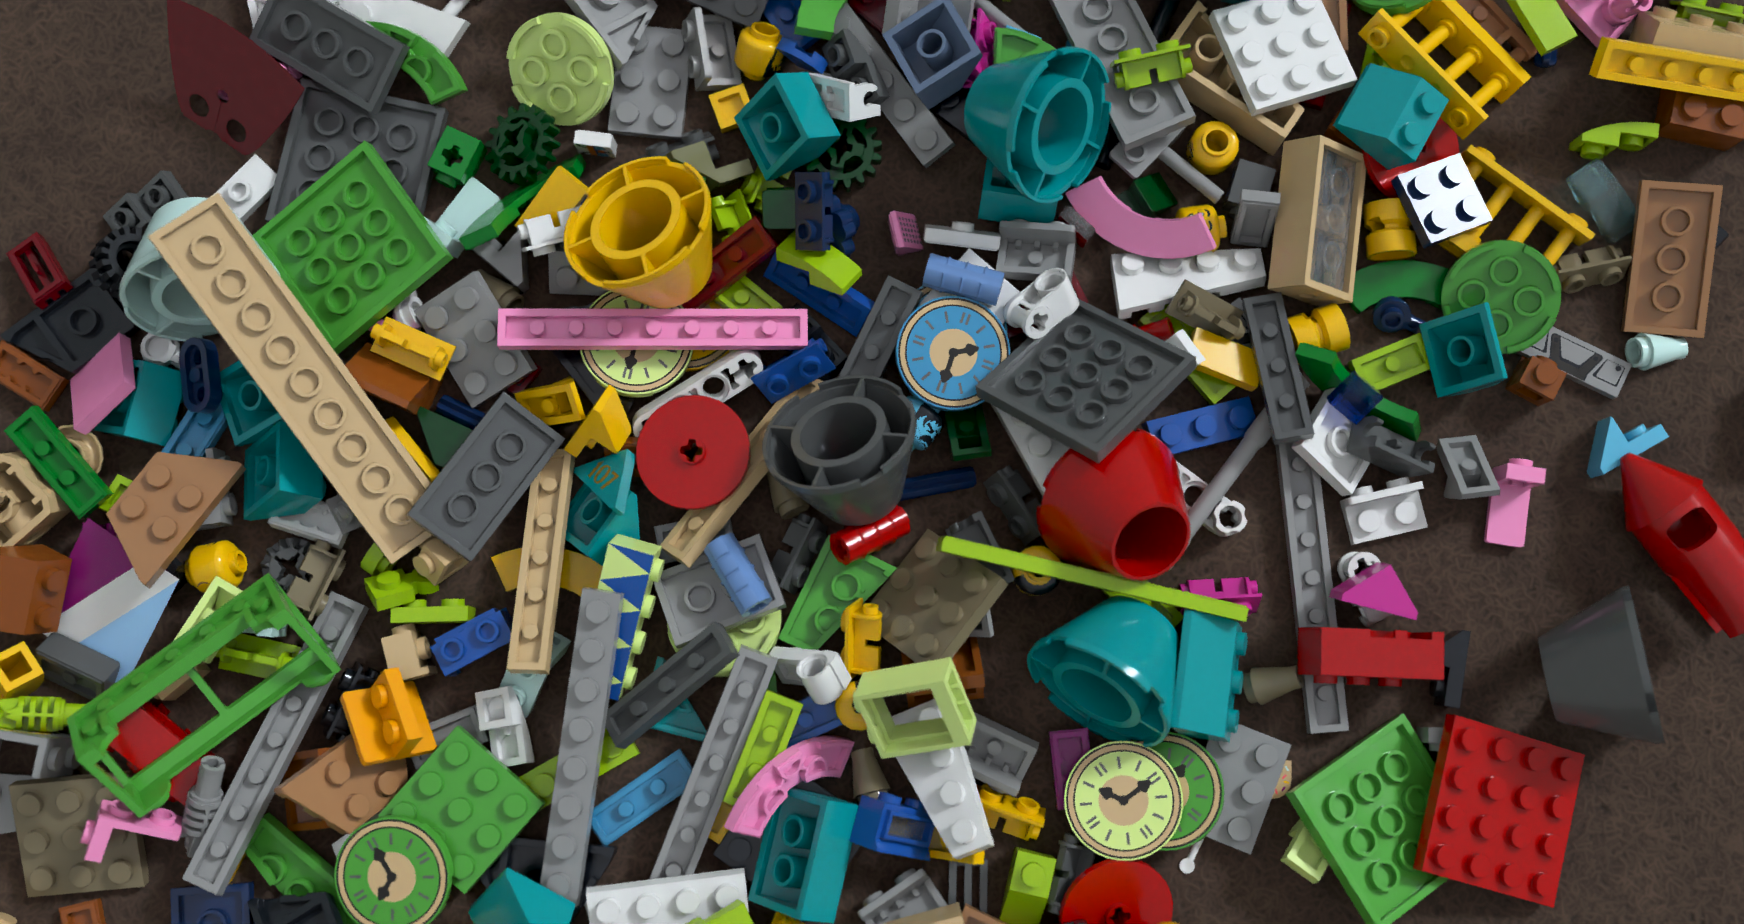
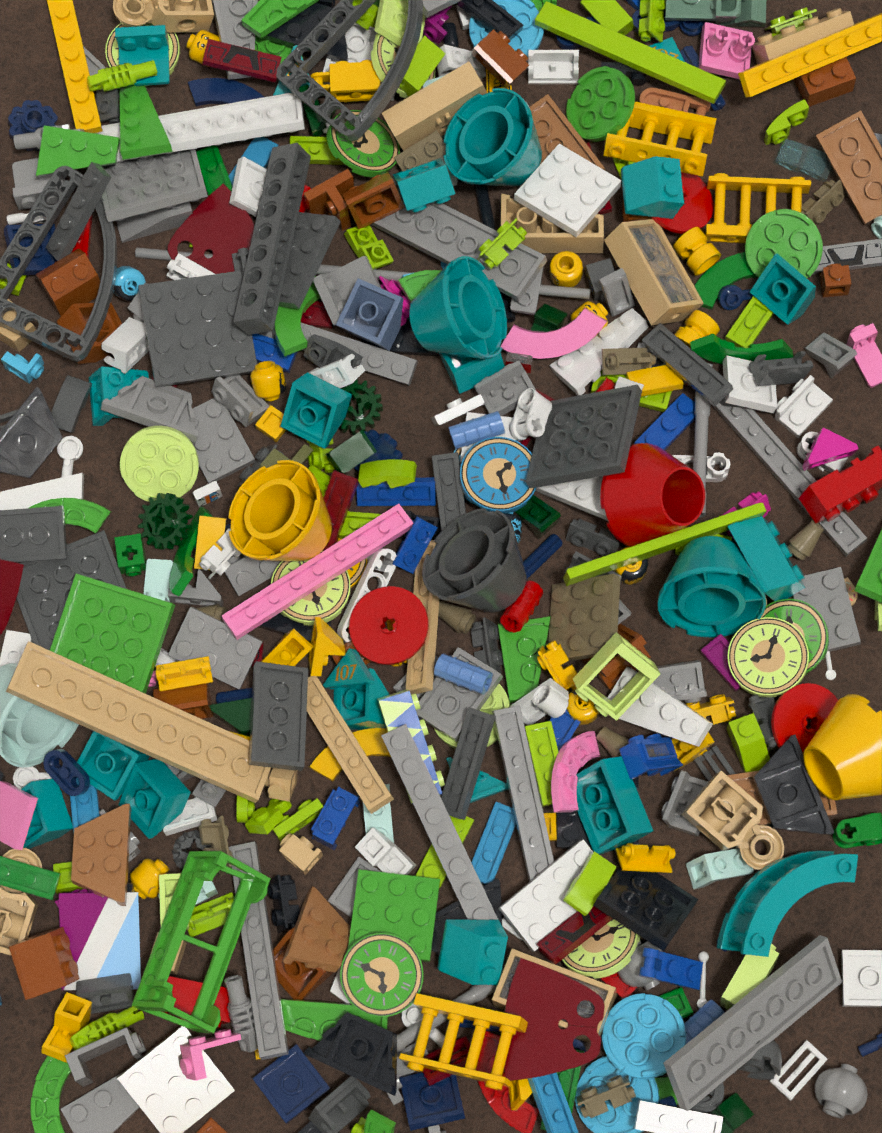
camera: 30 degrees left, 10 degrees down
(388, 720) = (316, 889): light orange bracket -> none
(804, 60) = (297, 368): blue tile -> none
(812, 226) = (365, 444): dark blue hinge -> none
(904, 232) = (422, 430): bright pink slope -> none
(1354, 397) = (741, 352): clear blue tile -> none
(1441, 200) = (714, 216): plate -> none

